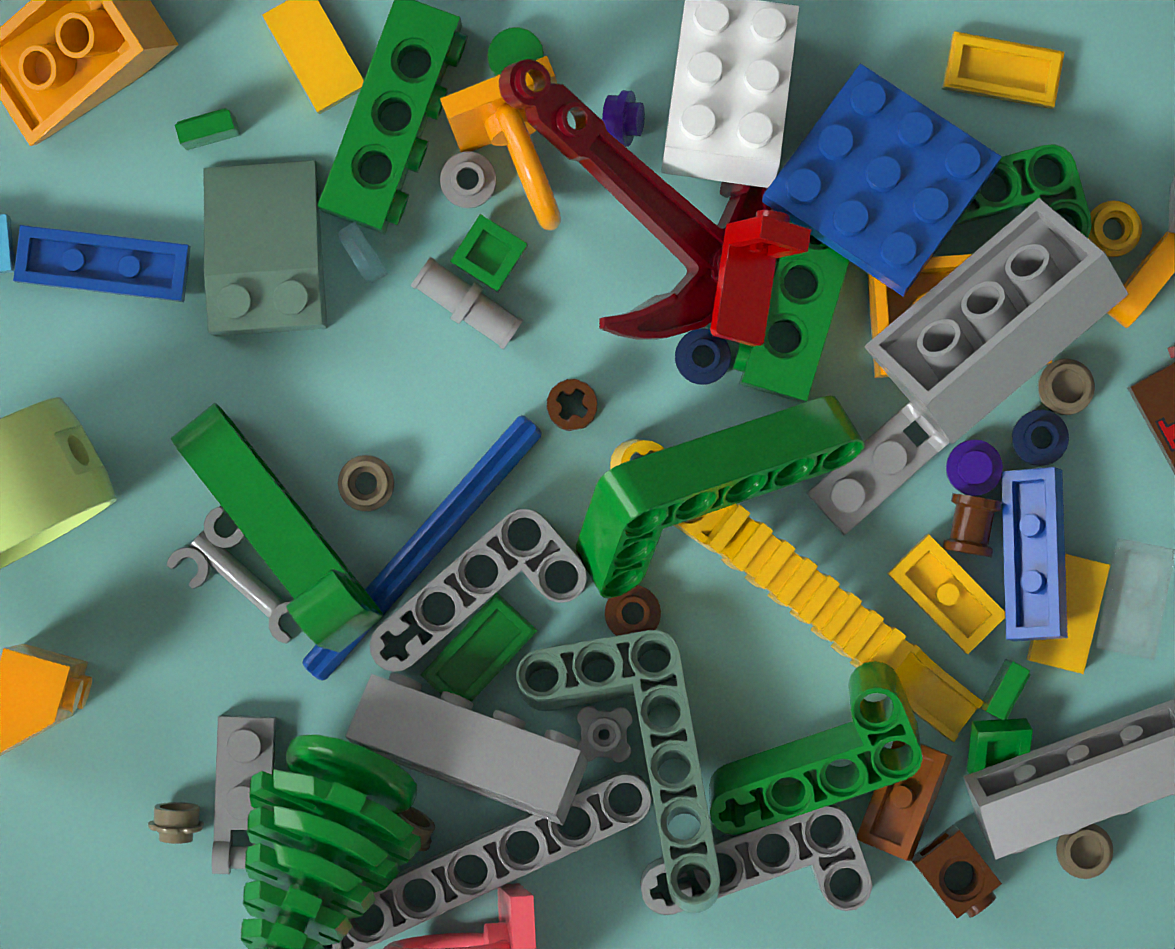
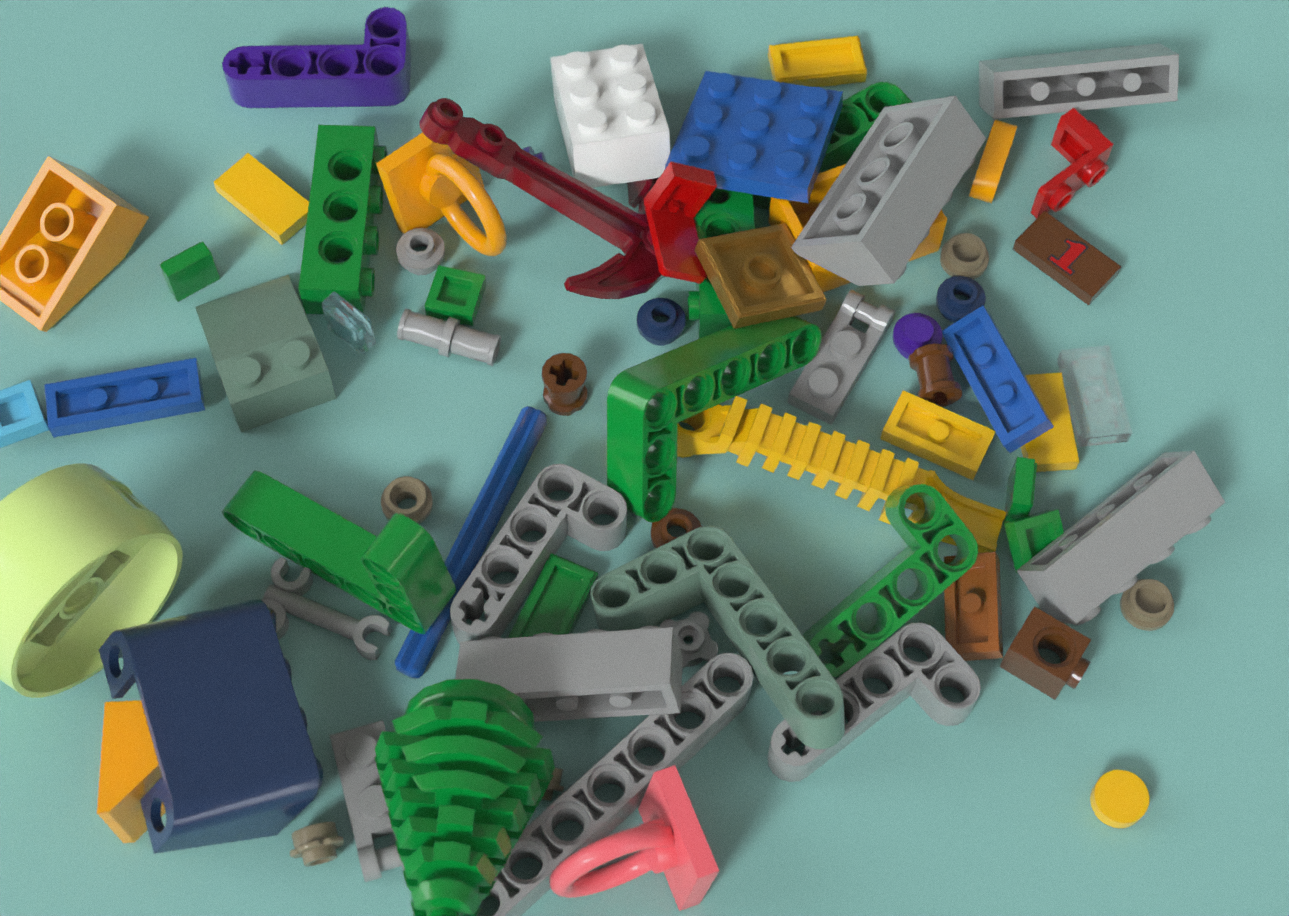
camera: 15 degrees left, 25 degrees down
(108, 685) = (219, 724): none -> dark blue windscreen
(819, 363) = (759, 275): none -> pearl gold tile

